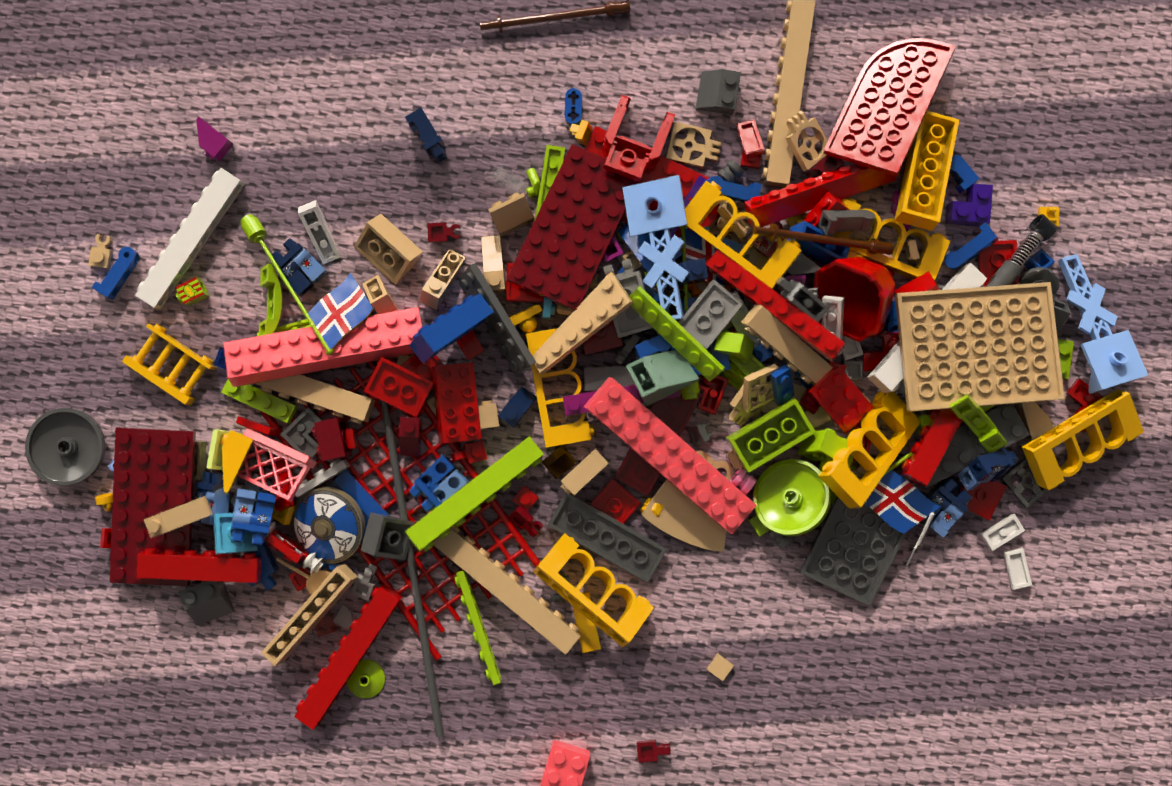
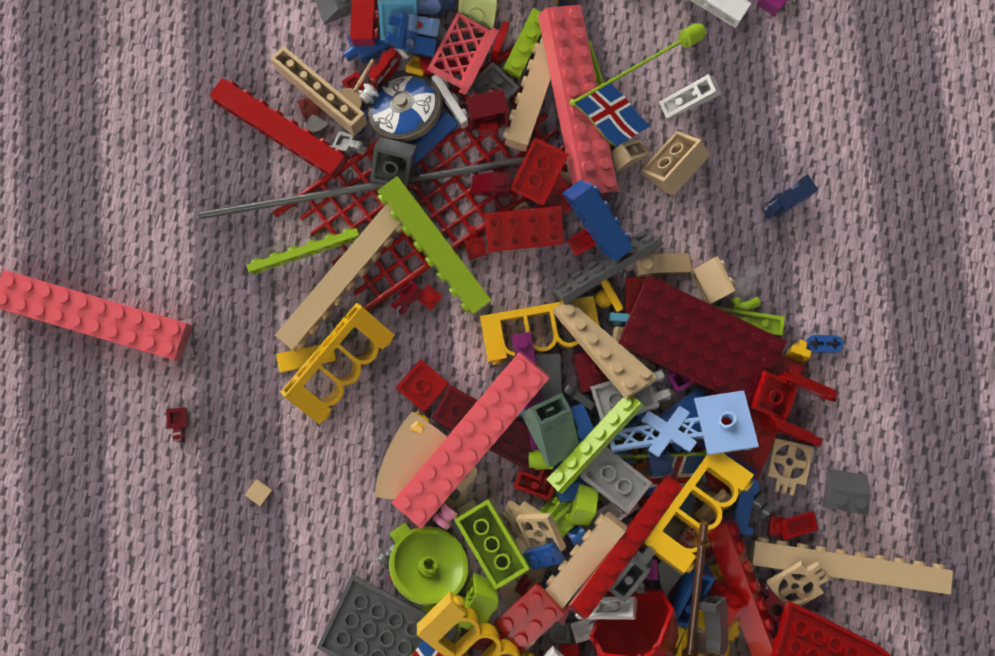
camera: 90 degrees right, 5 degrees down
(233, 454) = (473, 17): yellow slope -> none
(270, 280) = (641, 51): lime slope -> none
(296, 260) = (655, 78): hips -> none
(375, 676) = (258, 154): lime dish -> none
(432, 485) = (442, 205): blue hips -> none
(439, 232) = (693, 212): dark red plate -> none
(441, 279) = (646, 214): tan slope -> none
(488, 415) = (512, 260): tan brick -> none
(517, 407) = (520, 288): dark blue slope -> none
(559, 462) = (465, 329): dark brown panel -> none
(583, 472) = (455, 353): tan brick -> none
(607, 537) = (390, 378): dark grey plate -> none
(609, 9) = (926, 380): reddish brown bar -> none
(699, 434) = (493, 470): dark grey tile -> none

